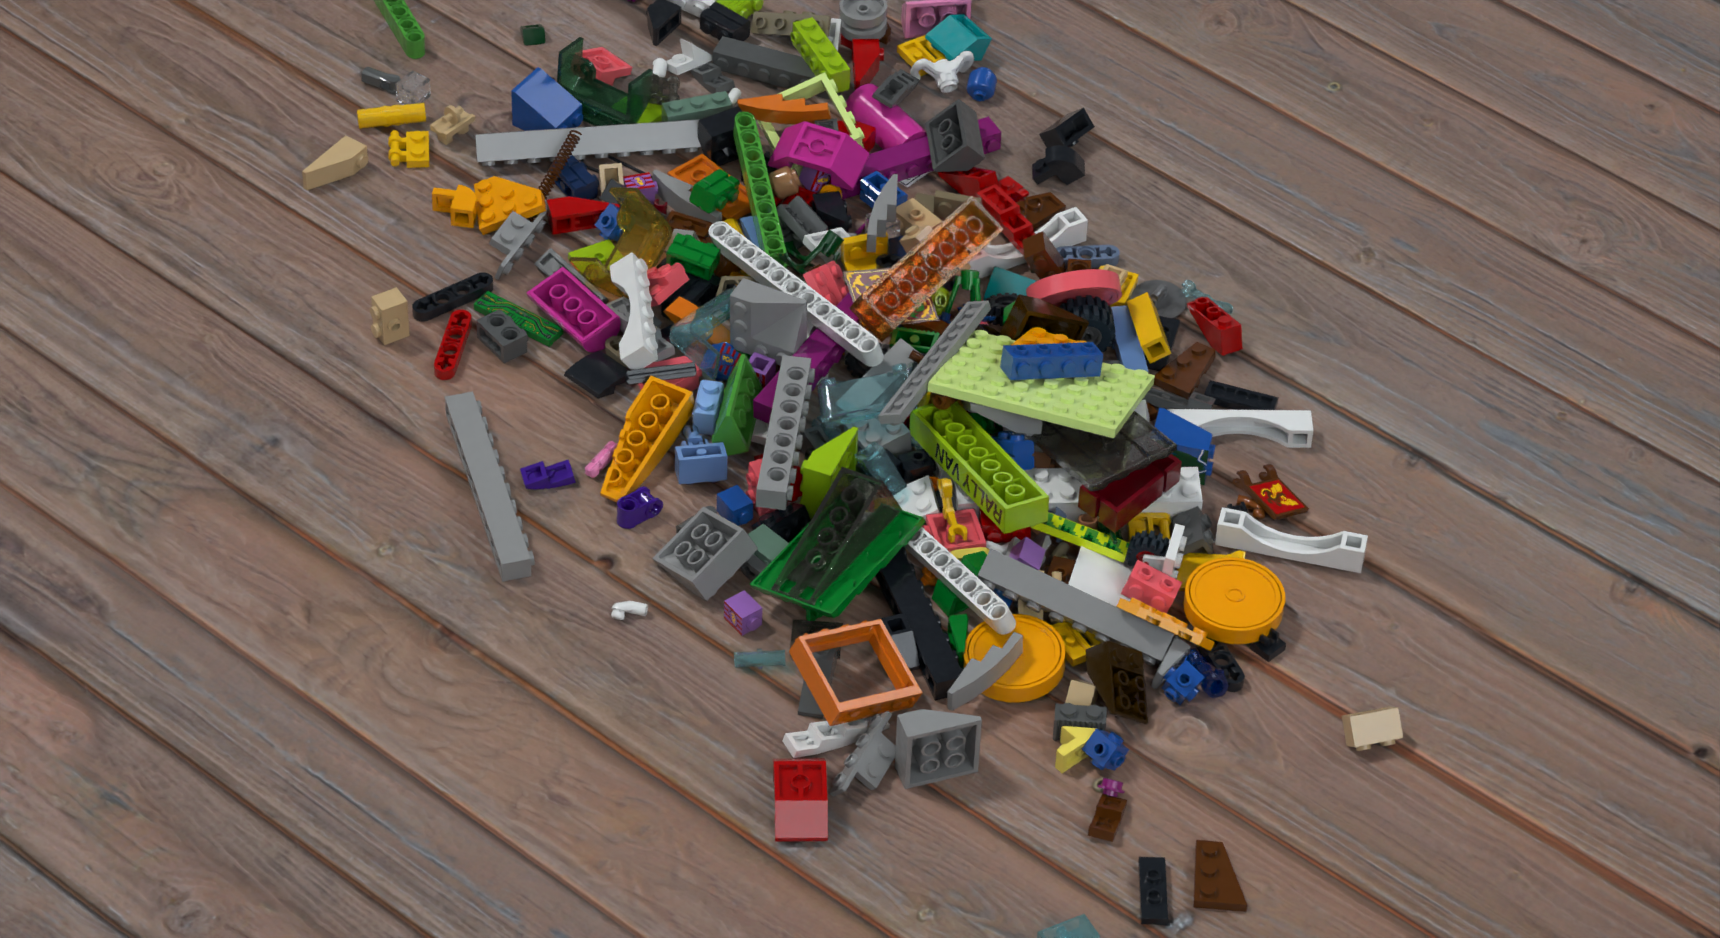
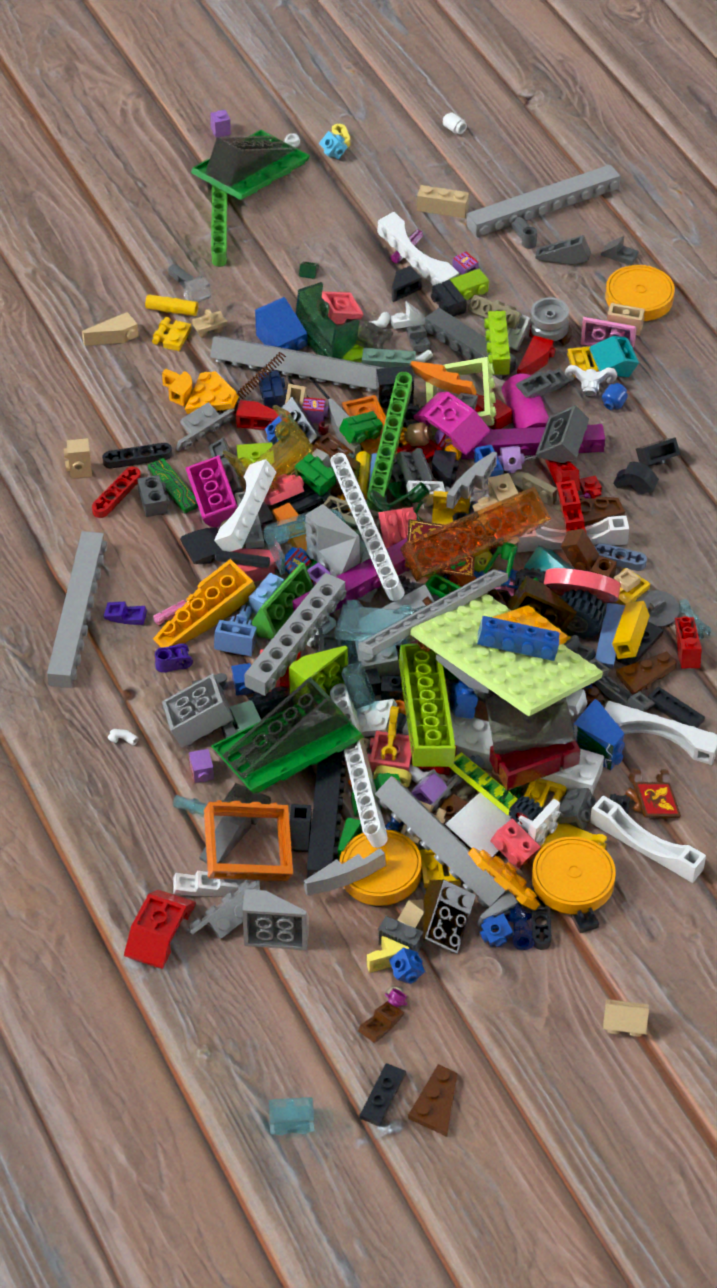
camera: 25 degrees right, 5 degrees up
(908, 180) = (506, 454): none -> lavender brick

